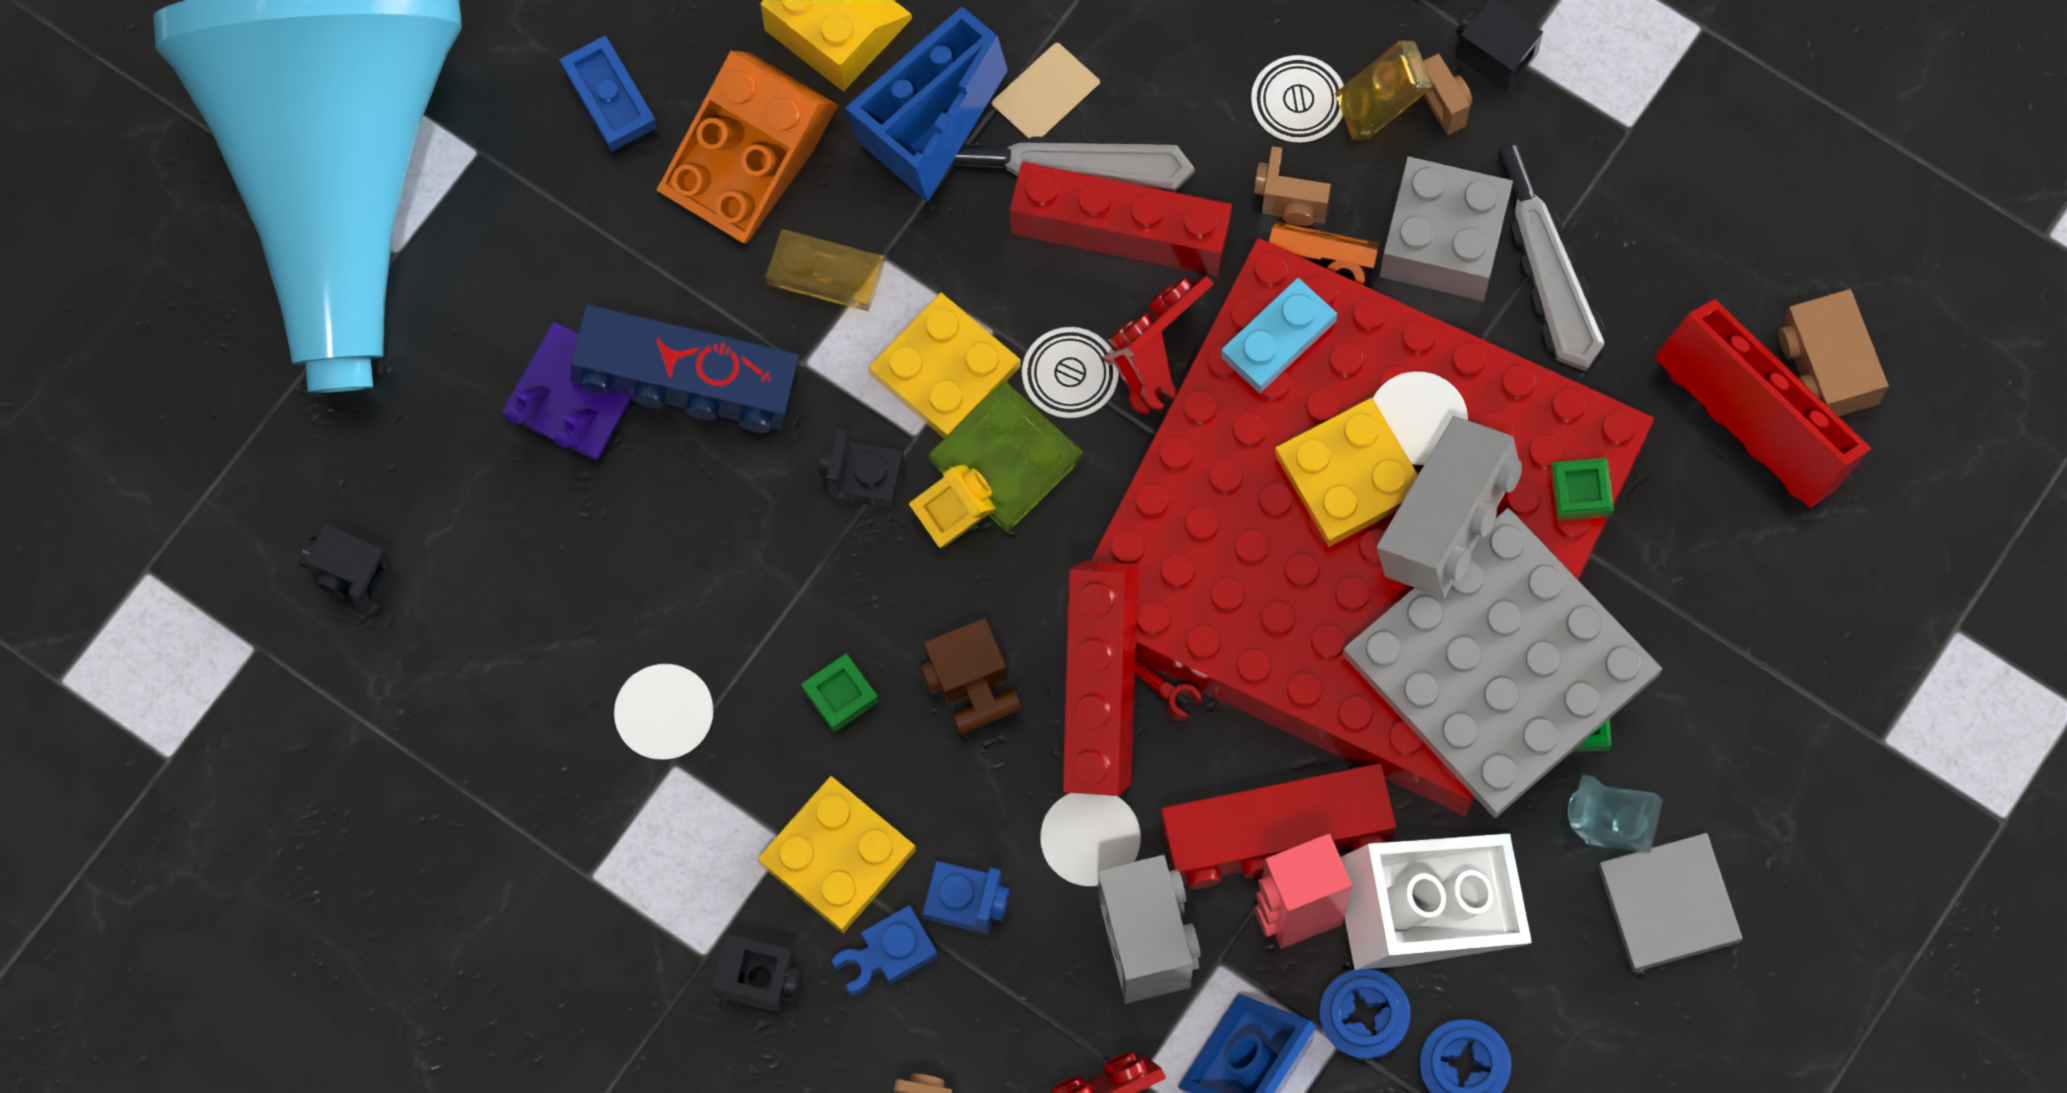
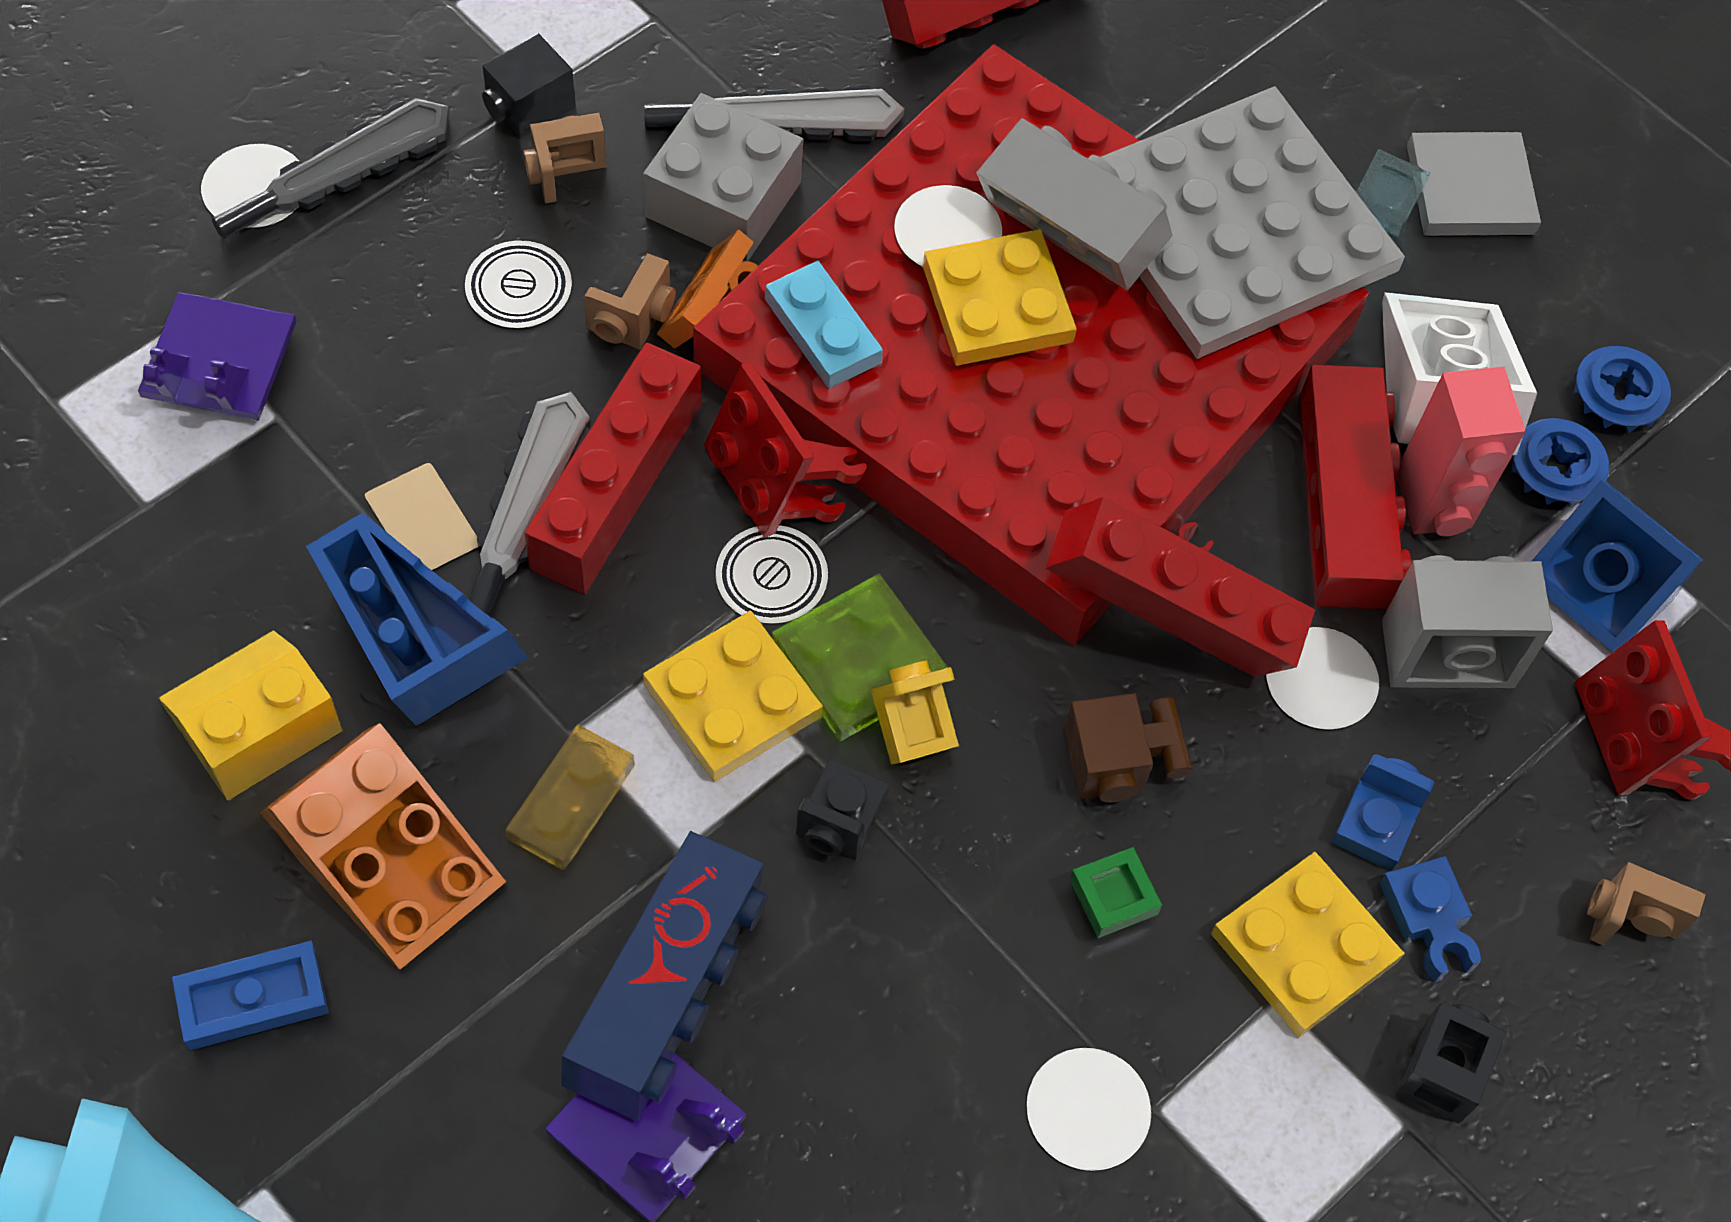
camera: 85 degrees left, 10 degrees down
(1383, 90) = (553, 182): clear yellow plate -> none
(1581, 489) = (1066, 107): green tile -> none

